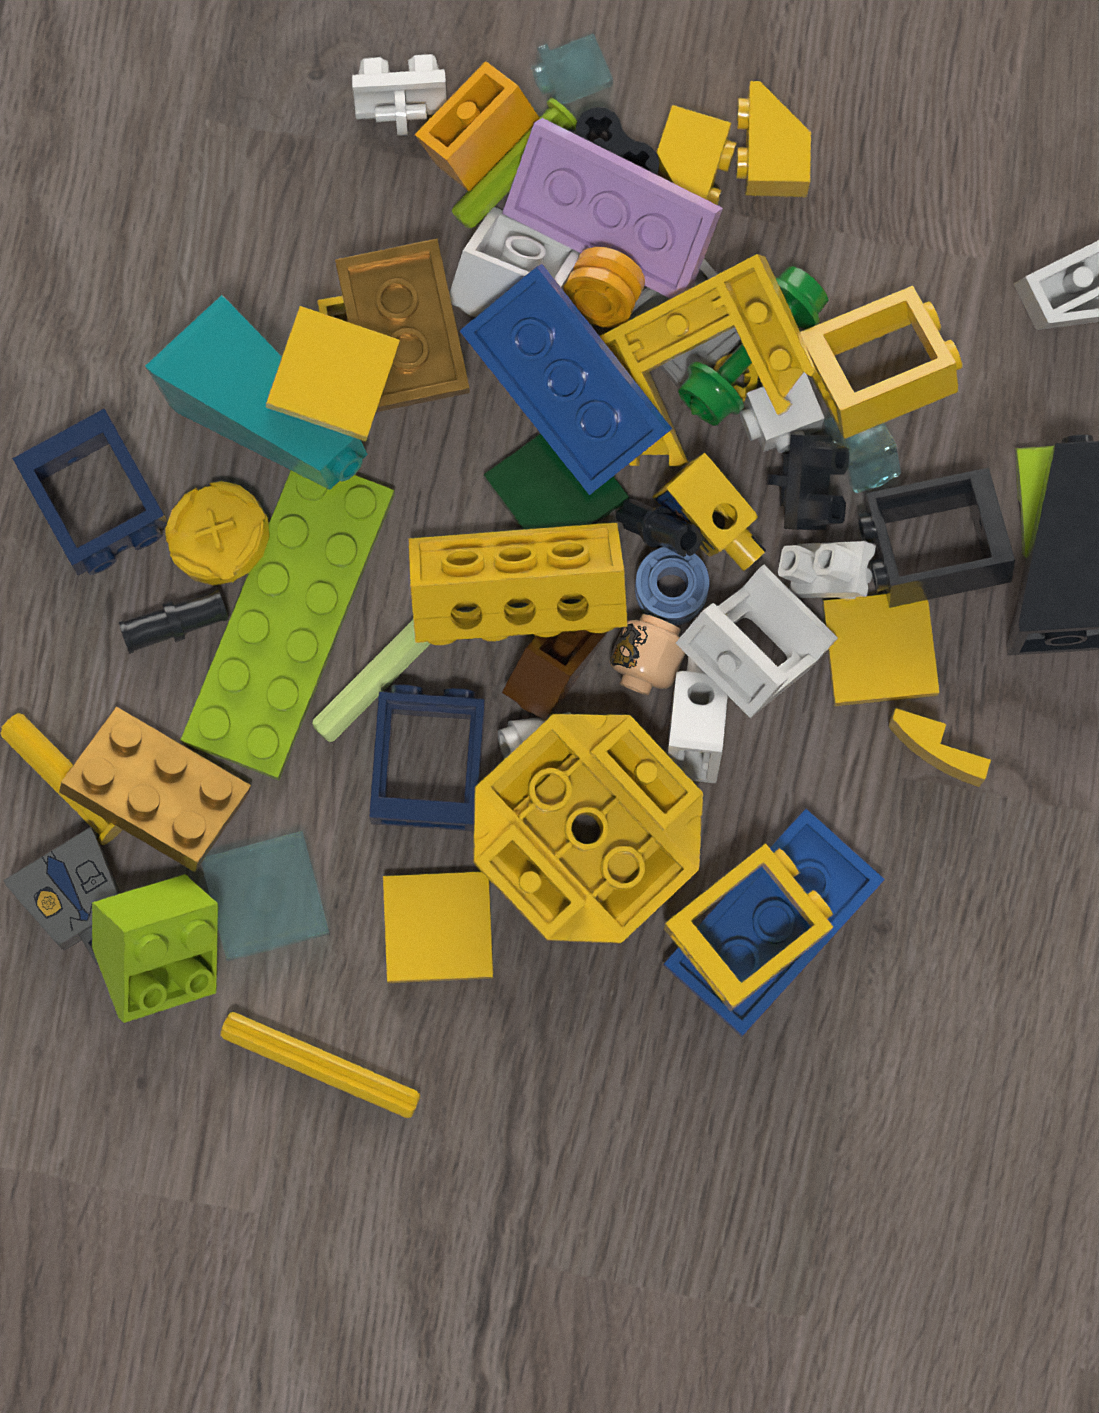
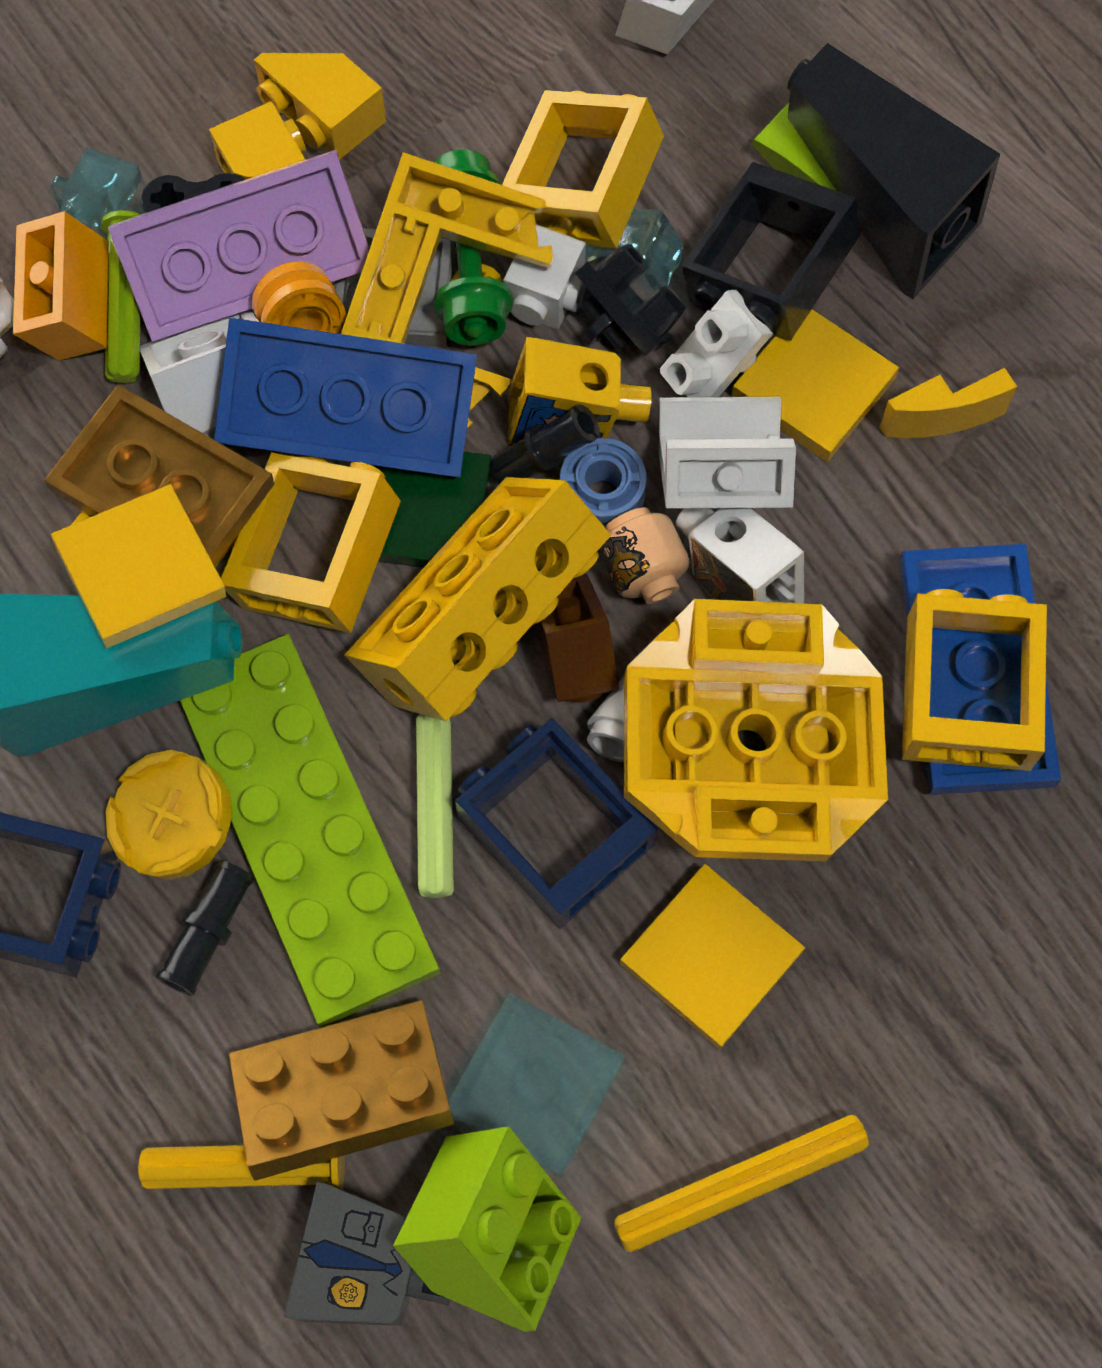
camera: 45 degrees left, 10 degrees down
(478, 482) = (300, 599): none -> yellow window

